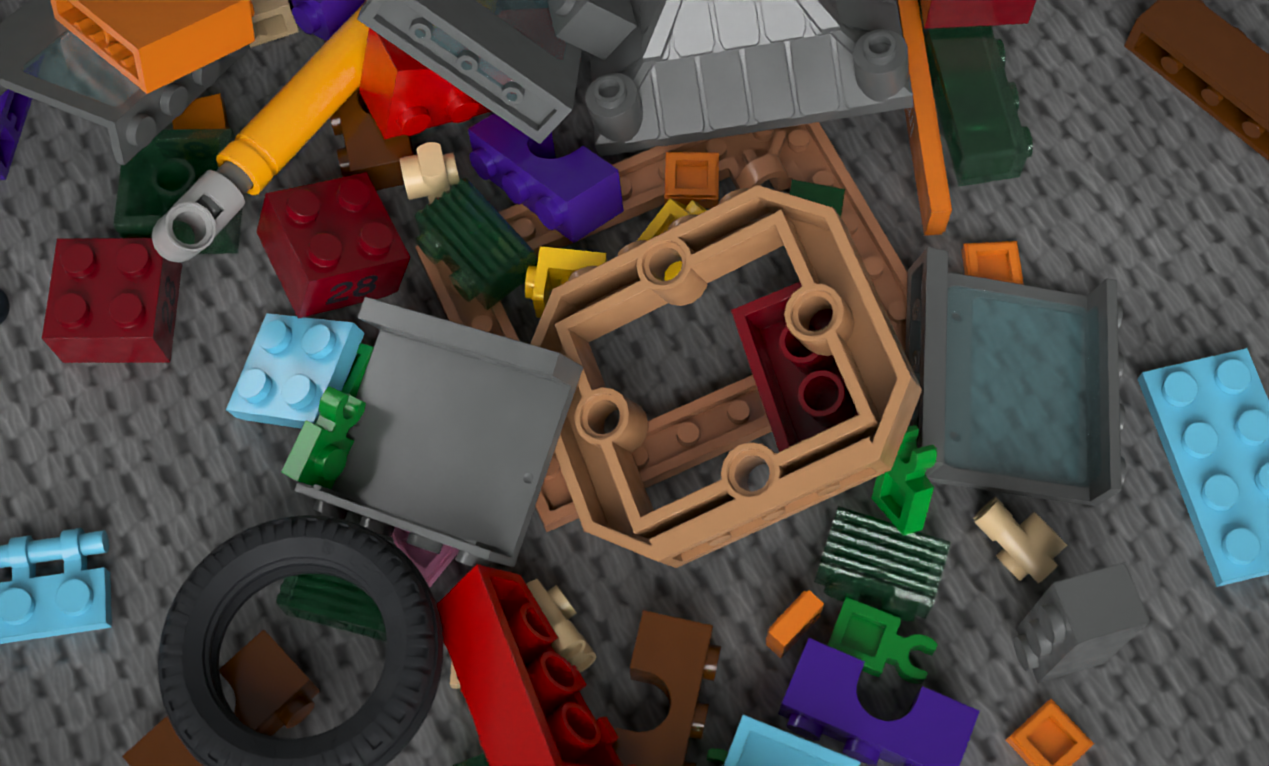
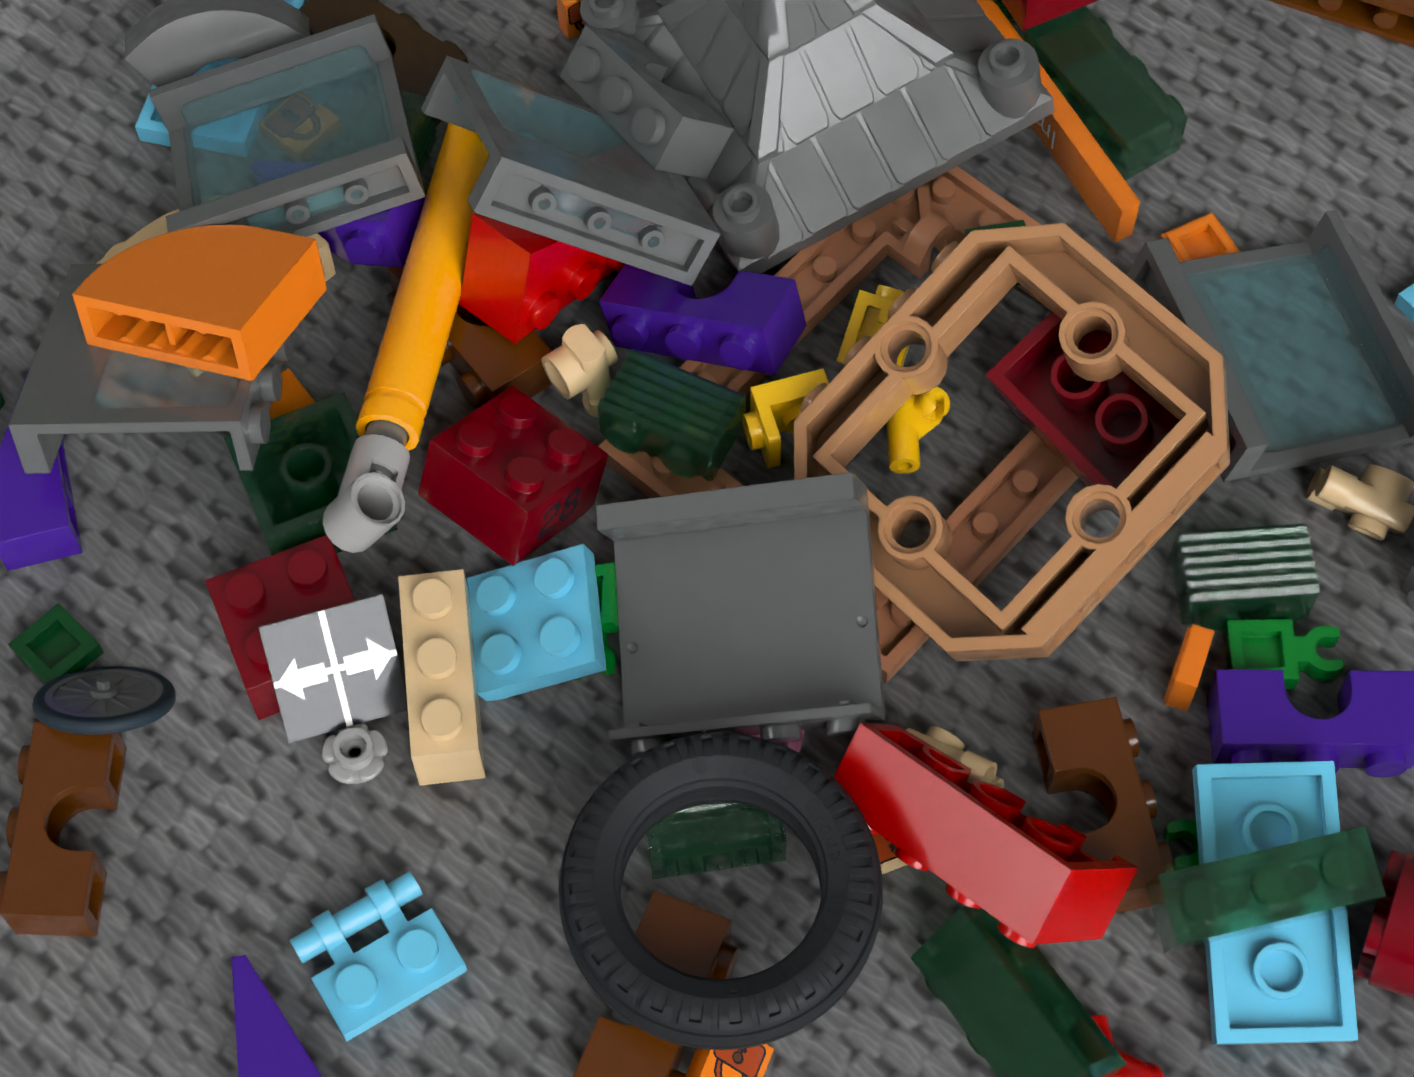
camera: 25 degrees left, 5 degrees down
(116, 347) = (334, 668): none -> sticker
(123, 428) = (360, 768): none -> light grey plate
(197, 386) = (441, 678): none -> tan brick
(323, 446) = (615, 686): green plate -> none
(664, 325) = (910, 424): none -> yellow arm
(692, 178) = (857, 266): orange tile -> none
(905, 489) = (1245, 488): green plate -> none

